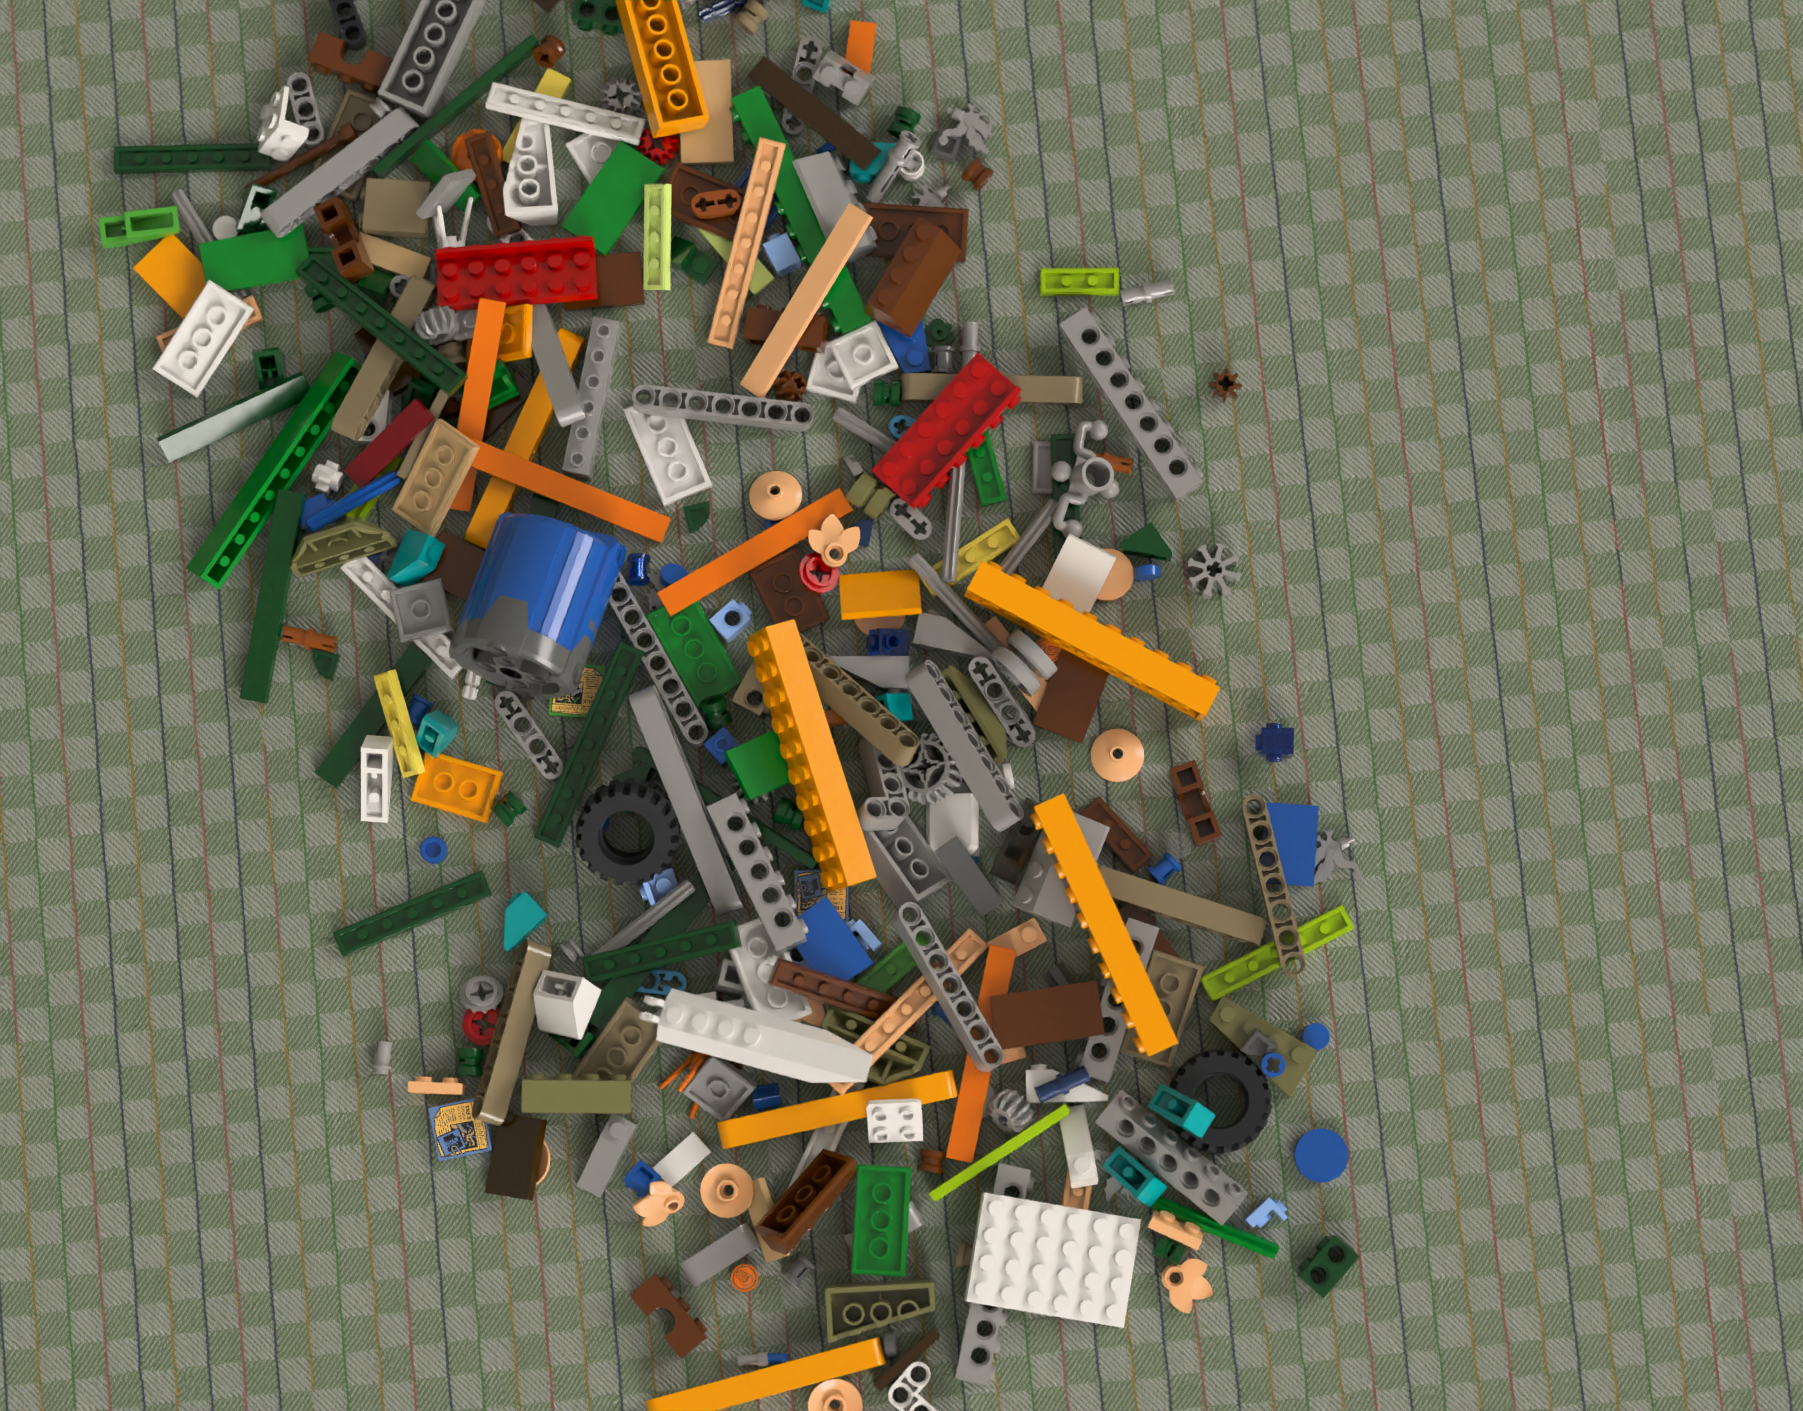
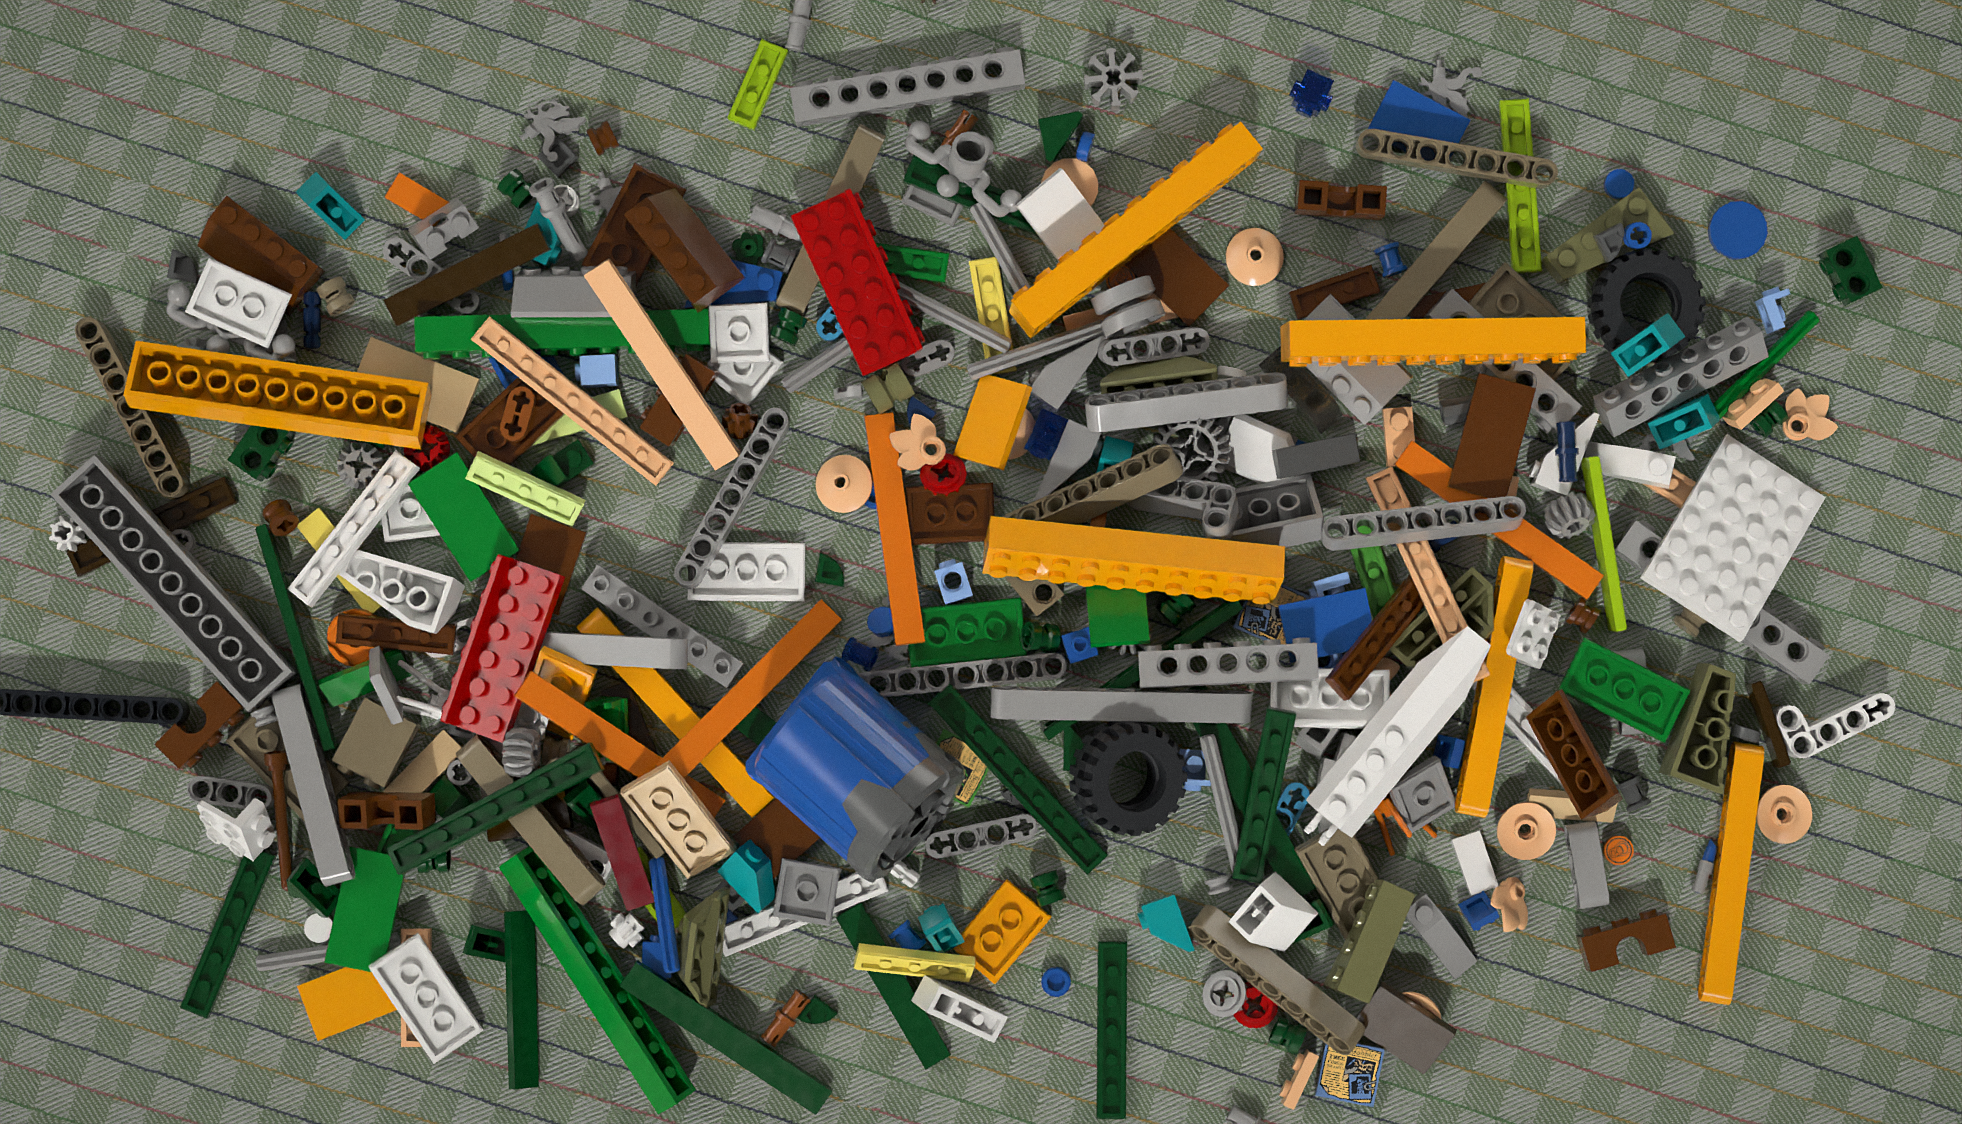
camera: 70 degrees left, 5 degrees up
(138, 226) = (277, 1016): bright green slope -> none

